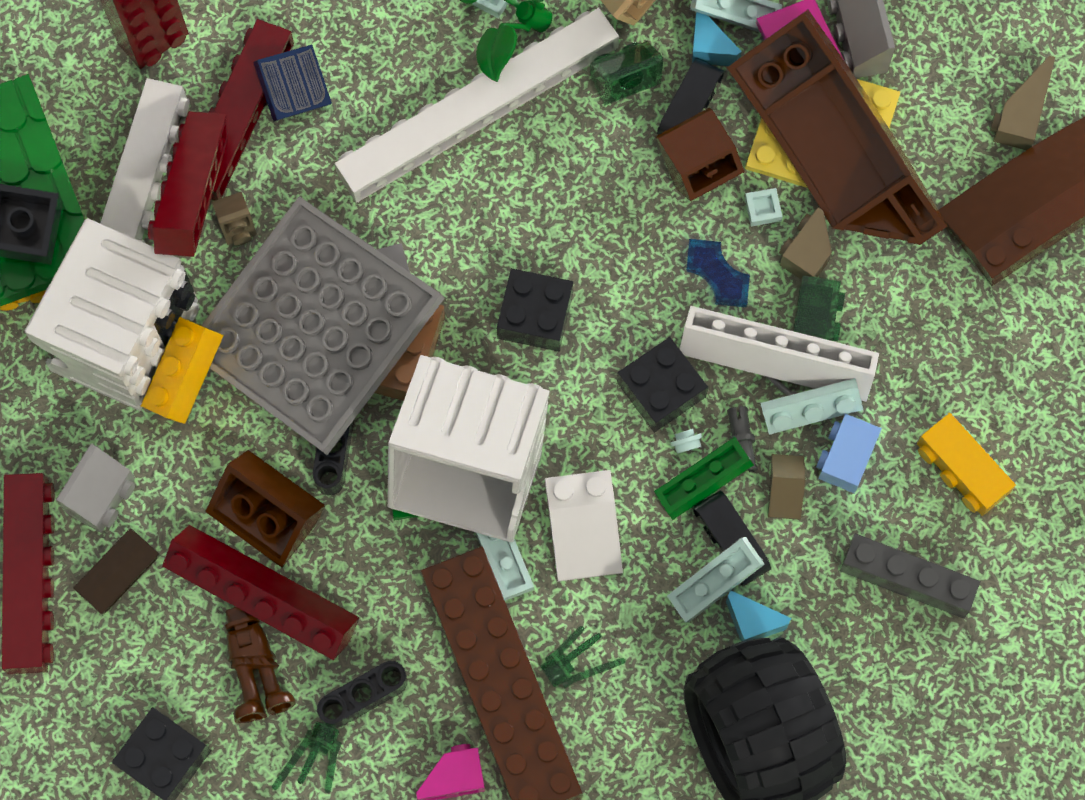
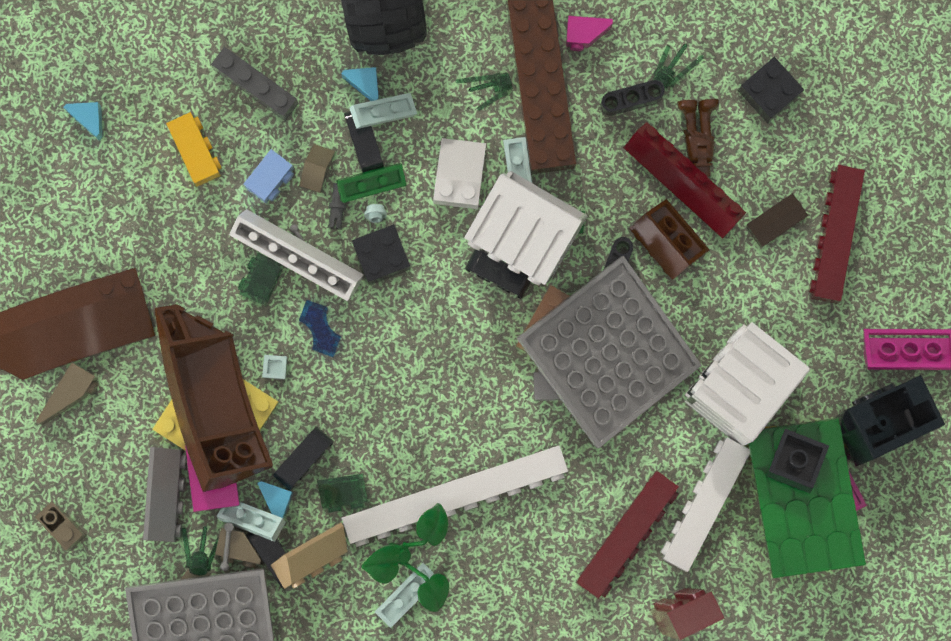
camera: 170 degrees left, 10 degrees up
(96, 489) = (779, 276): light grey slope -> none
(182, 370) = (706, 344): yellow brick -> none
(189, 184) = (674, 460): dark red brick -> none
(234, 219) = (647, 449): dark tan slope -> none
(292, 83) = (584, 542): tile -> none
(535, 309) = (453, 329): black brick -> none
(699, 154) = (309, 410): reddish brown slope -> none
(810, 249) = (251, 326): dark tan slope -> none
(812, 406) = (284, 212): light aqua plate -> none

